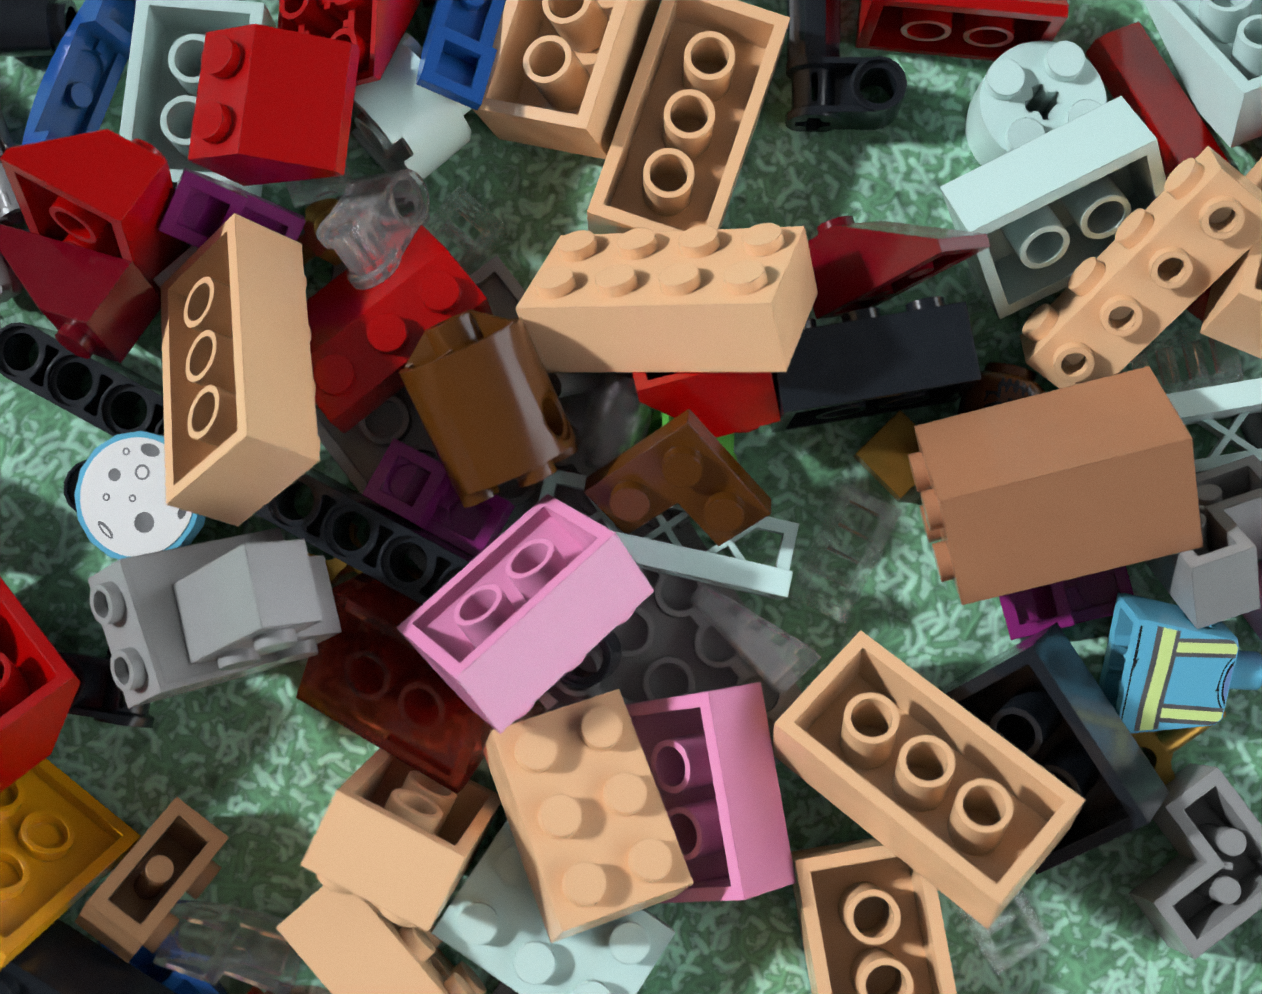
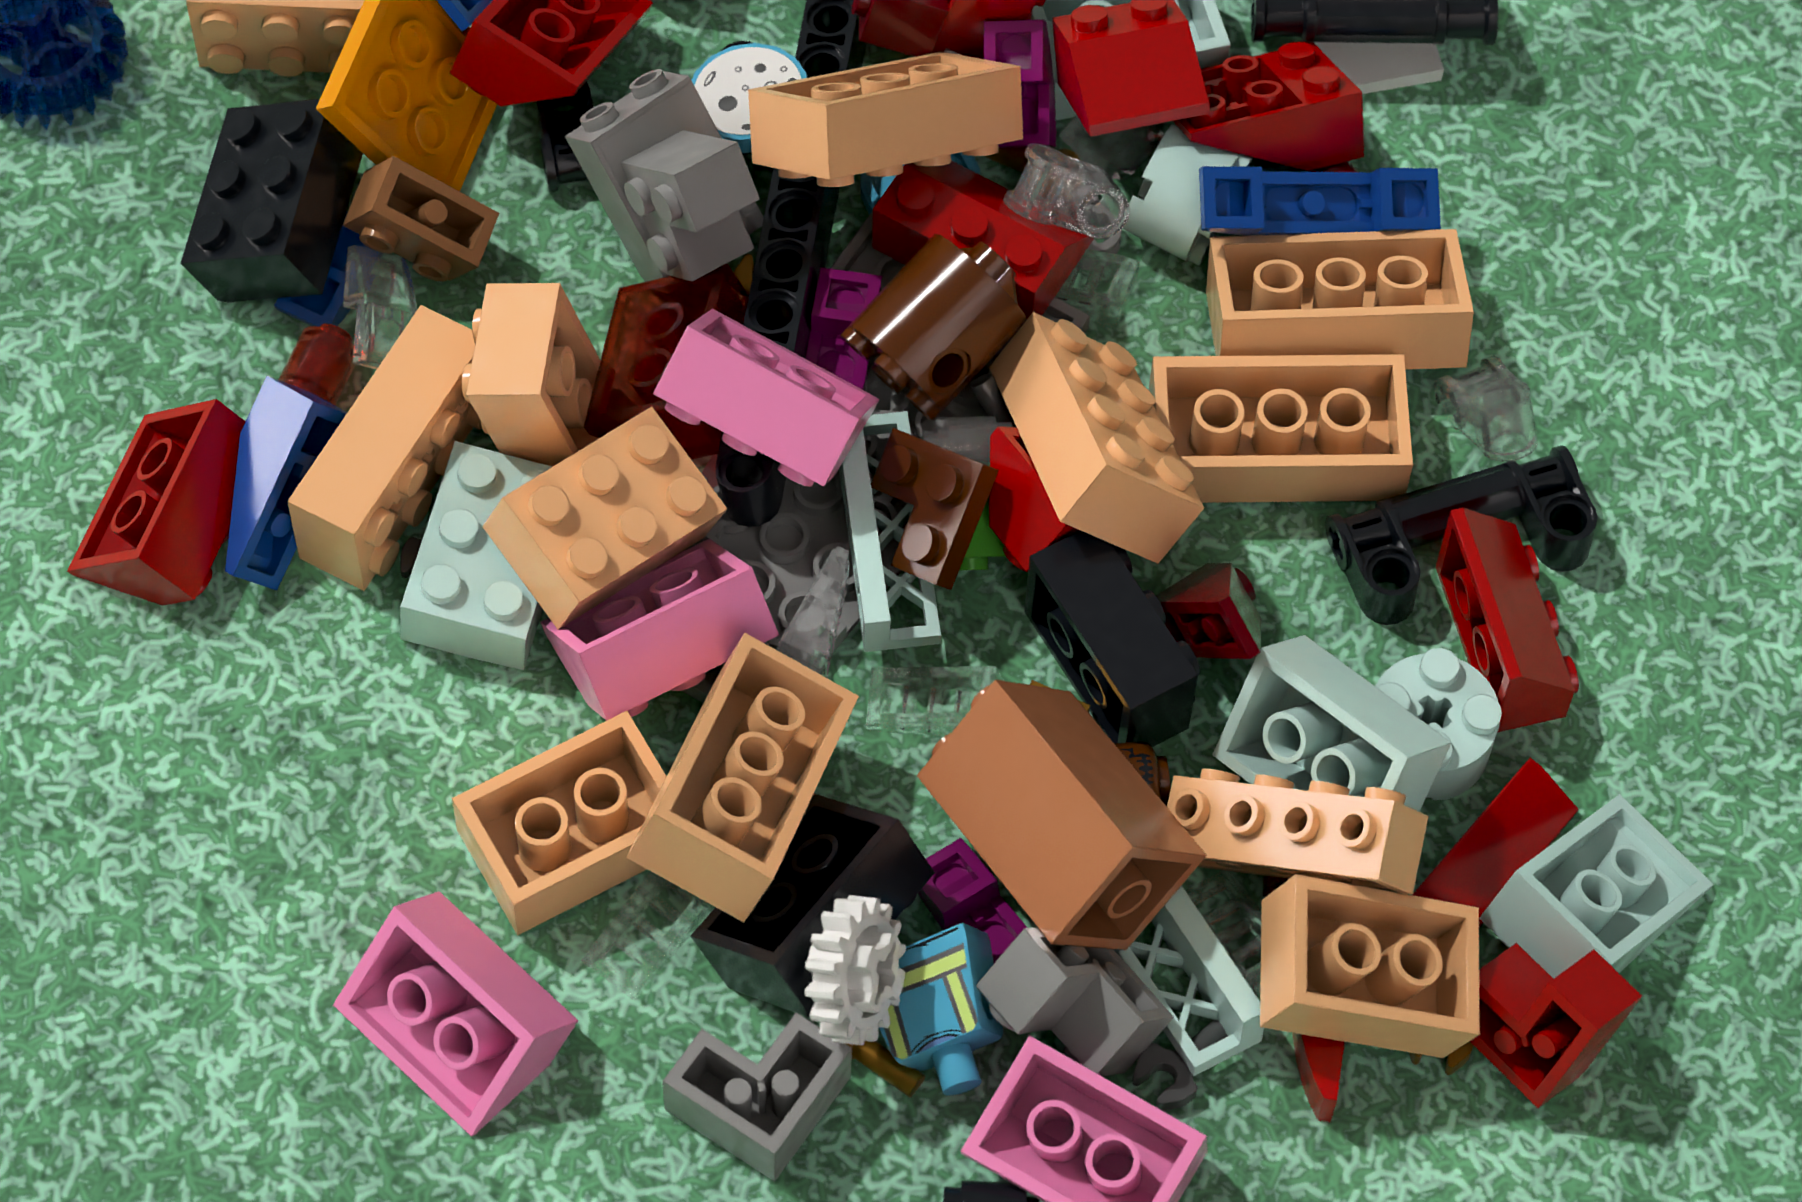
camera: 70 degrees right, 20 degrees down
(1171, 743) = (855, 970): none -> white gear

